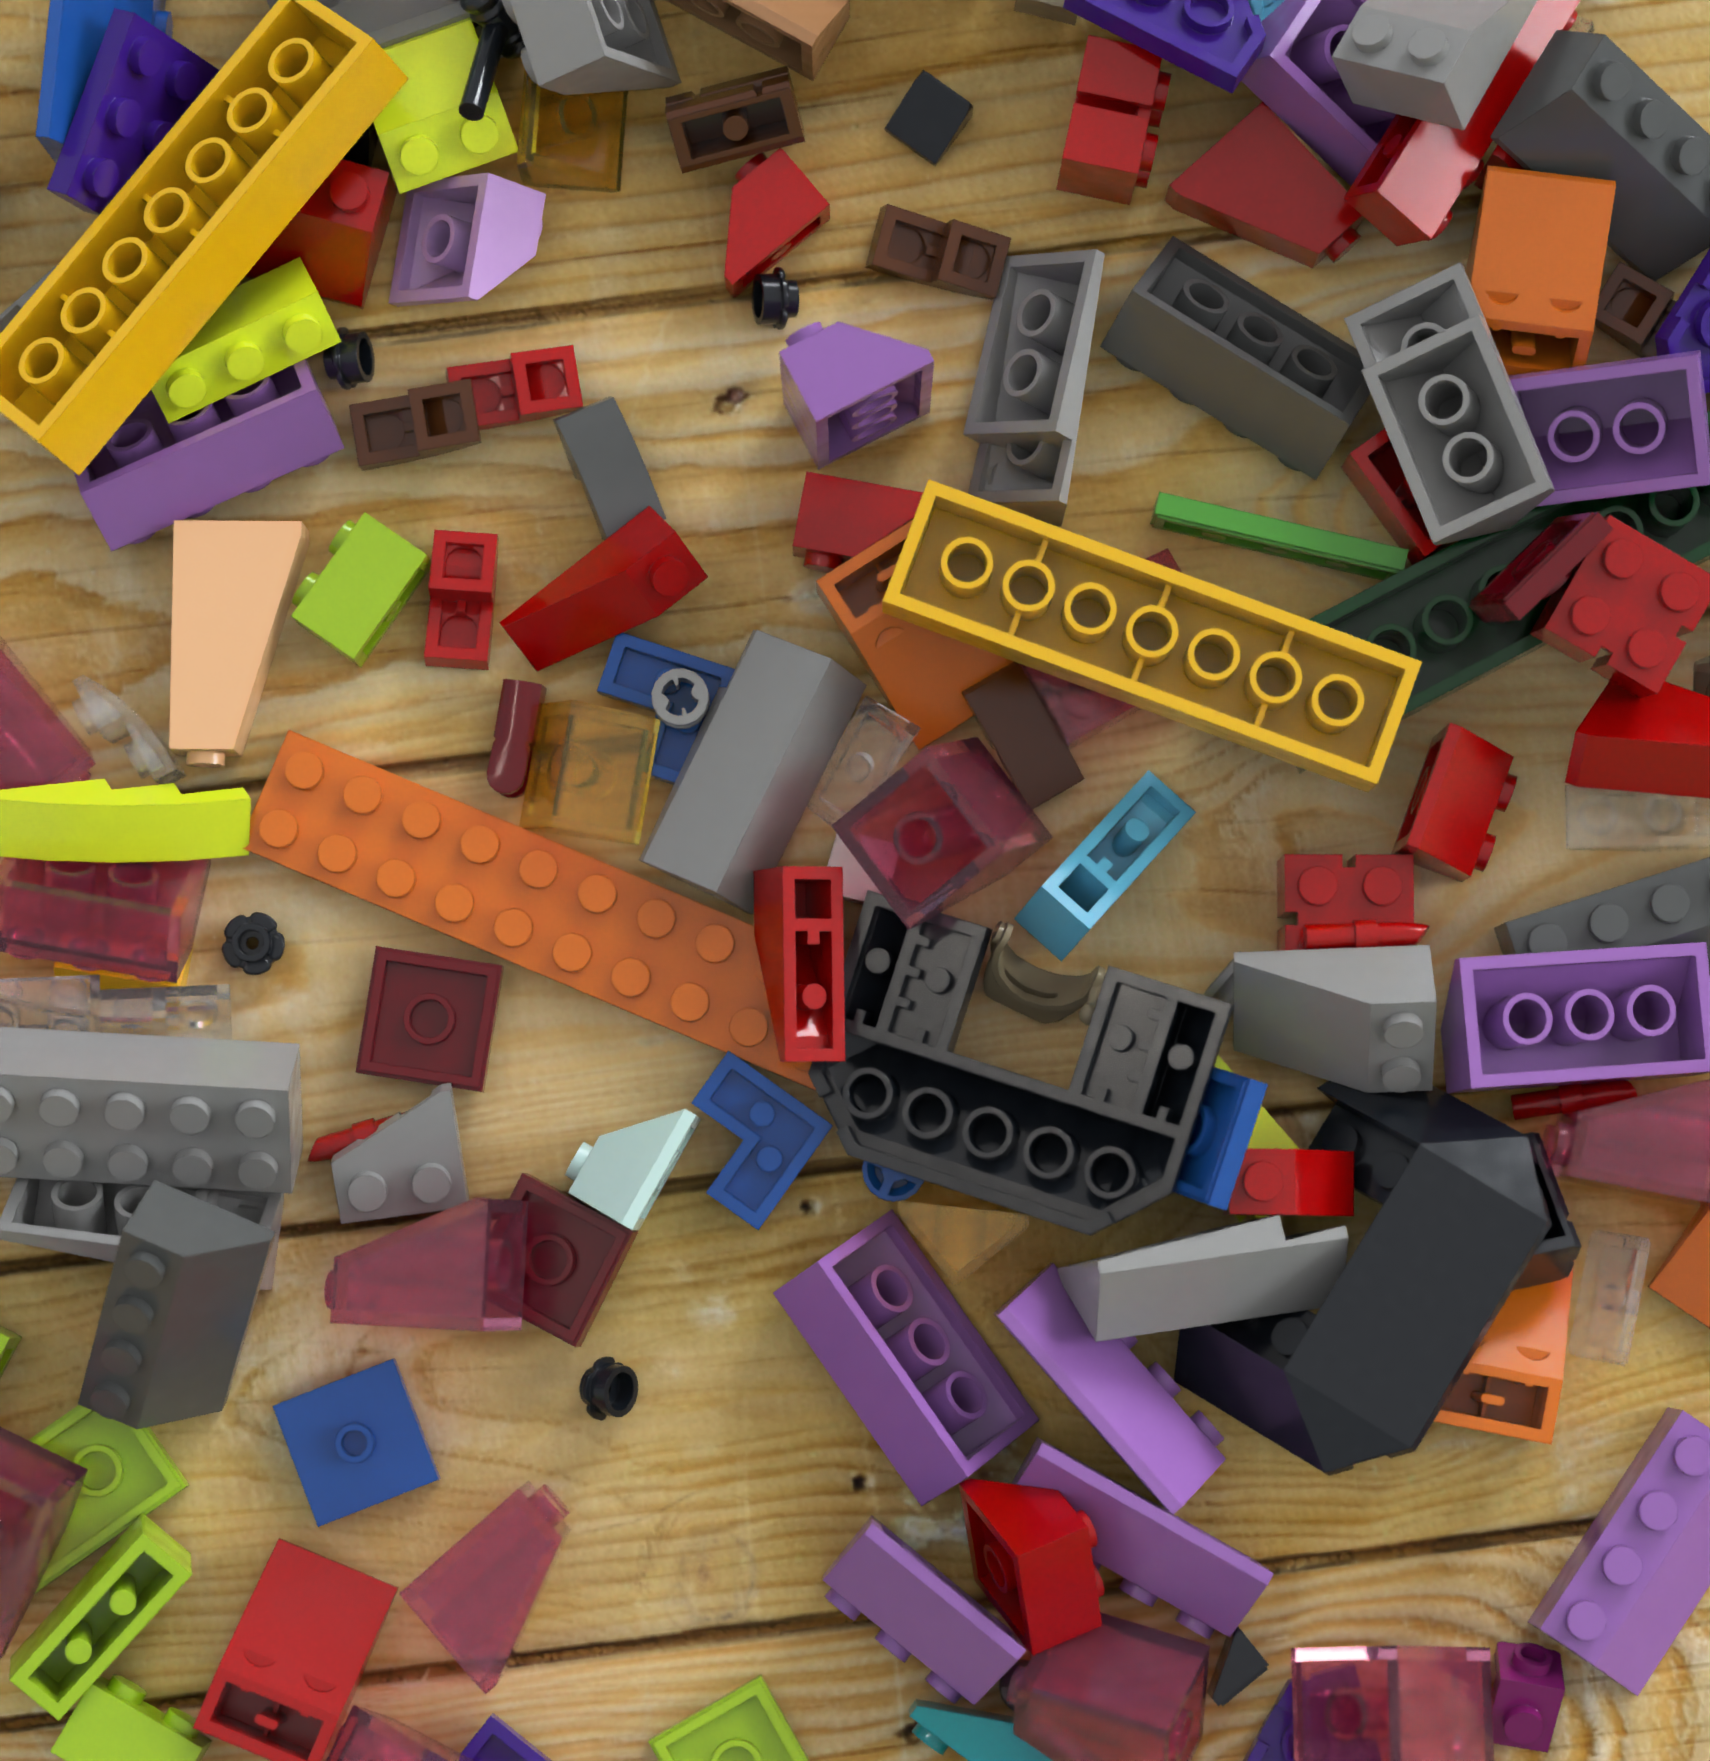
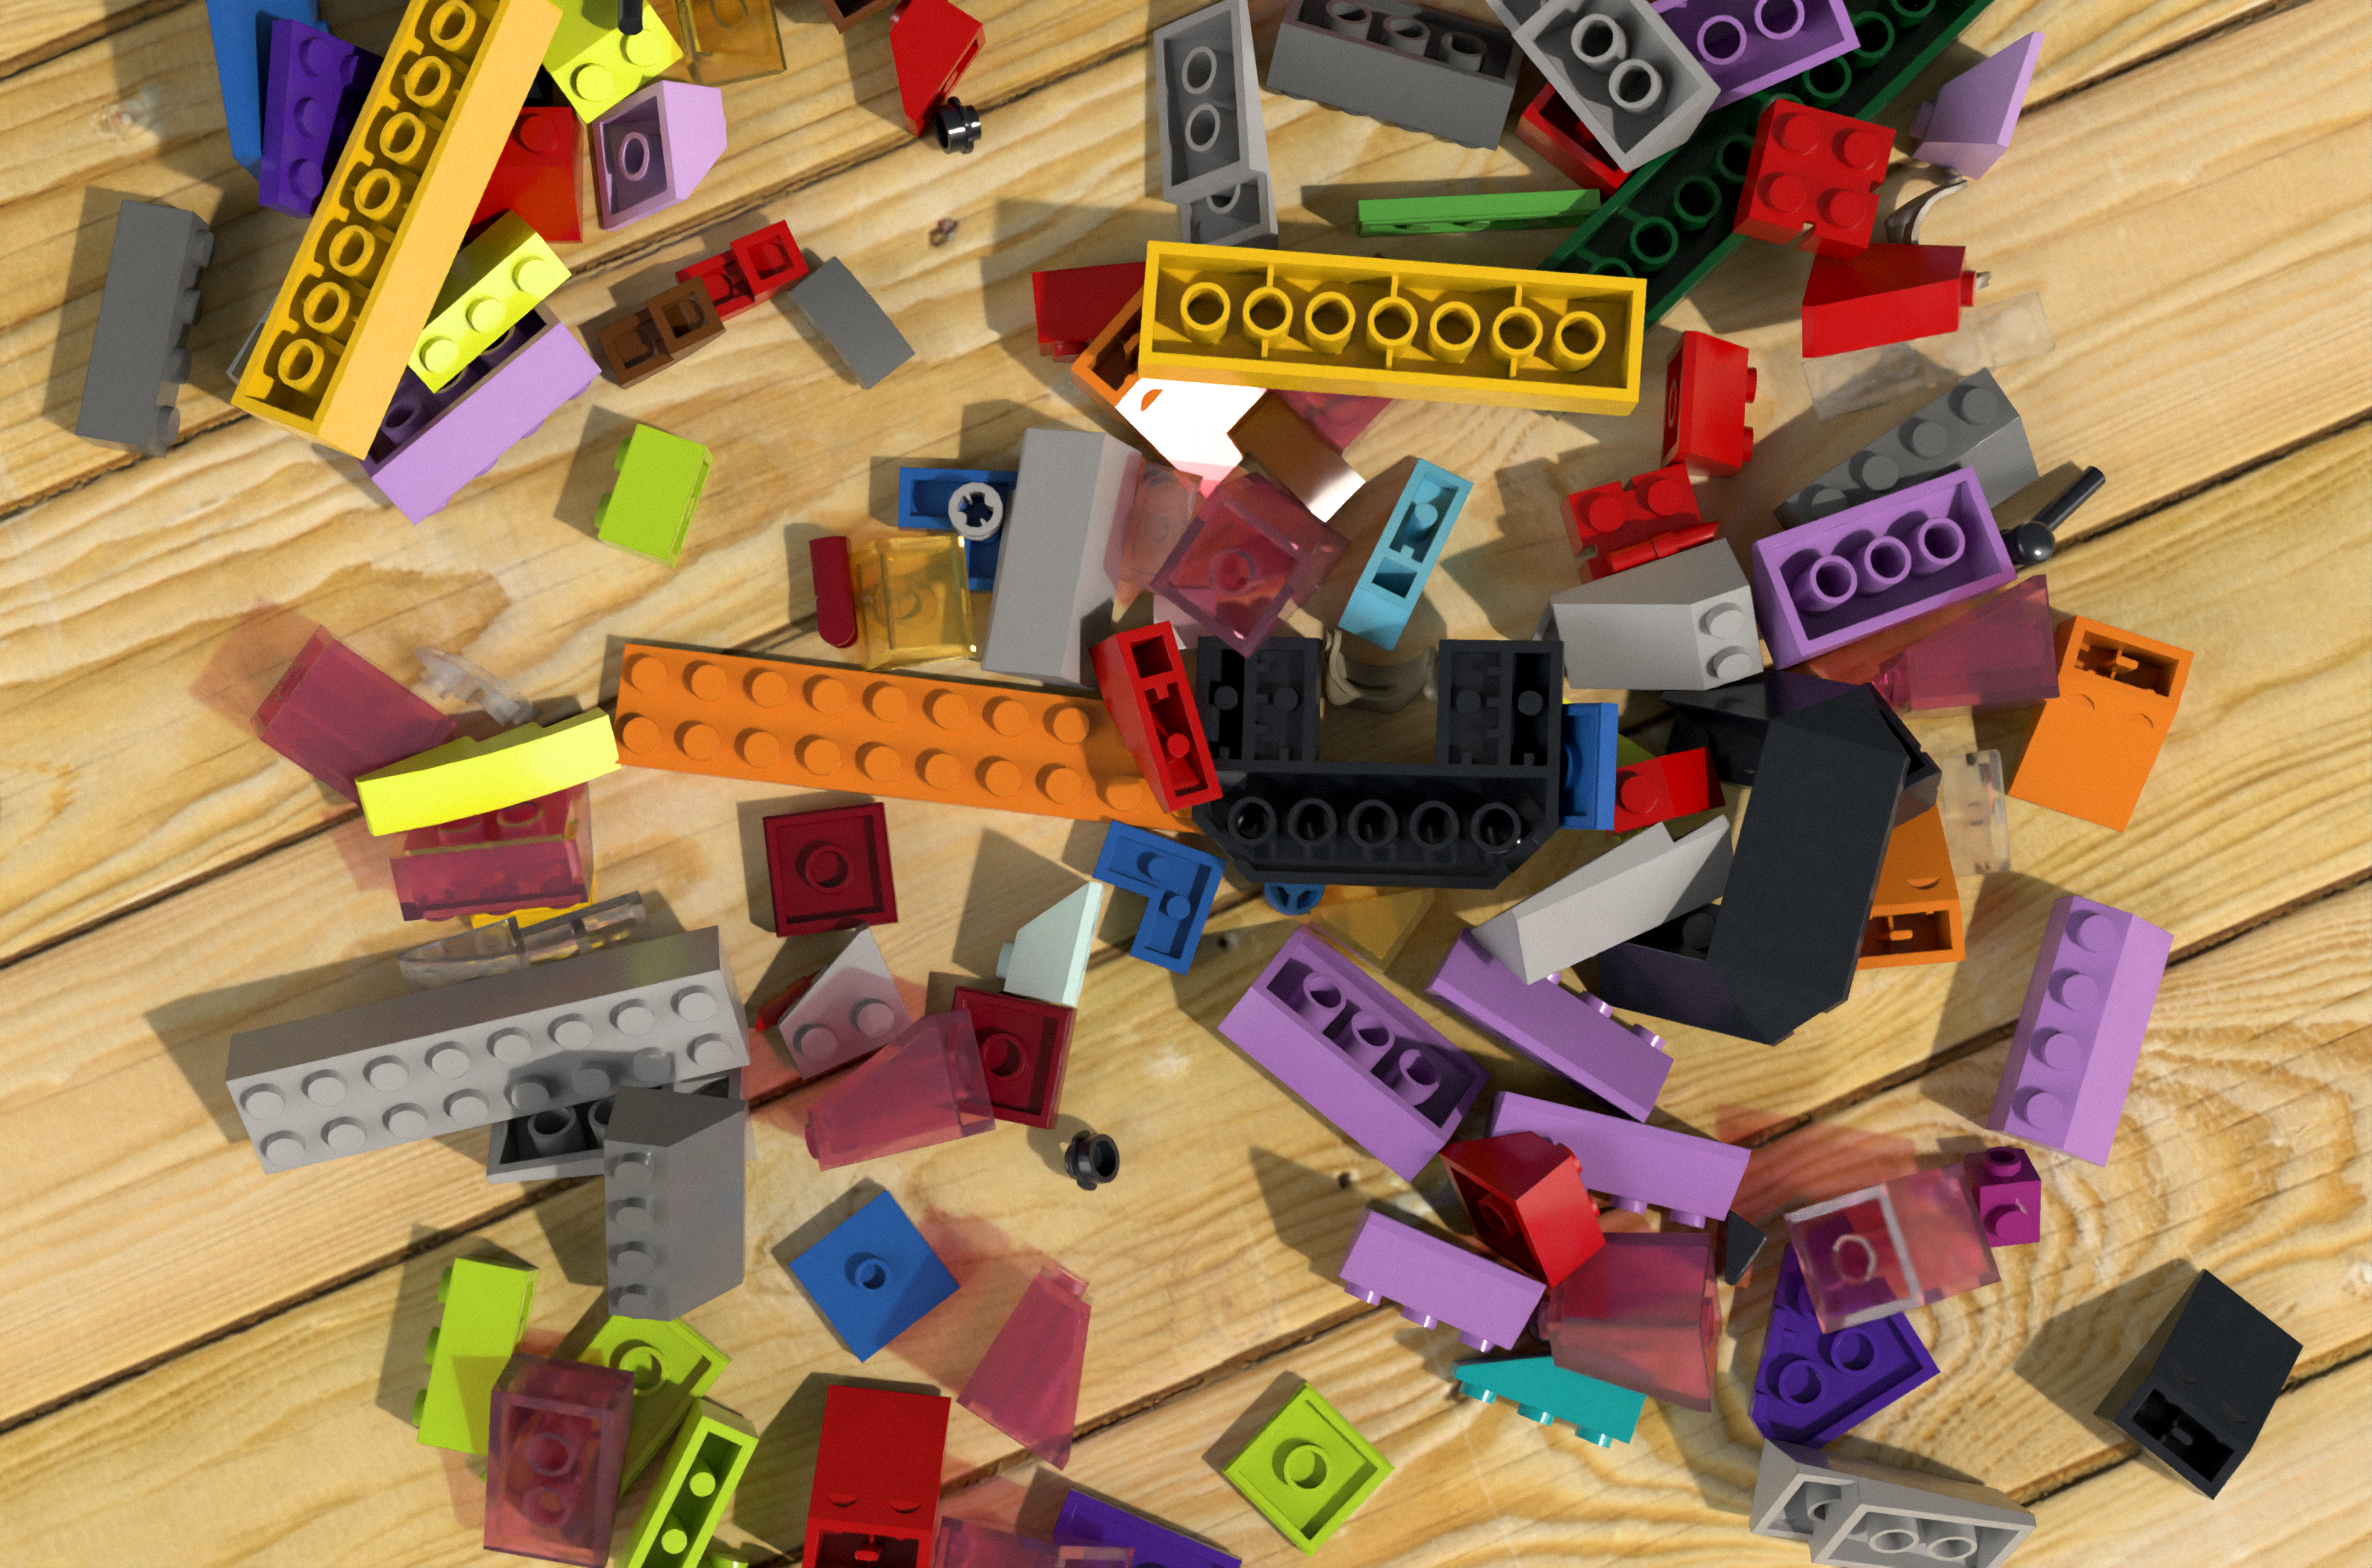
camera: 20 degrees left, 0 degrees up
(226, 623) = (539, 559): light nougat slope -> none
(256, 960) = (659, 860): black plate -> none
(351, 359) = (584, 290): black plate -> none
(461, 599) = (749, 480): red slope -> none
(606, 592) = (880, 434): red slope -> none
(851, 387) = (1052, 178): medium lavender slope -> none
(938, 253) = (1093, 45): reddish brown slope -> none
(1540, 567) = (1728, 164): dark red plate -> none
(1569, 1098) = (1887, 644): red piece -> none

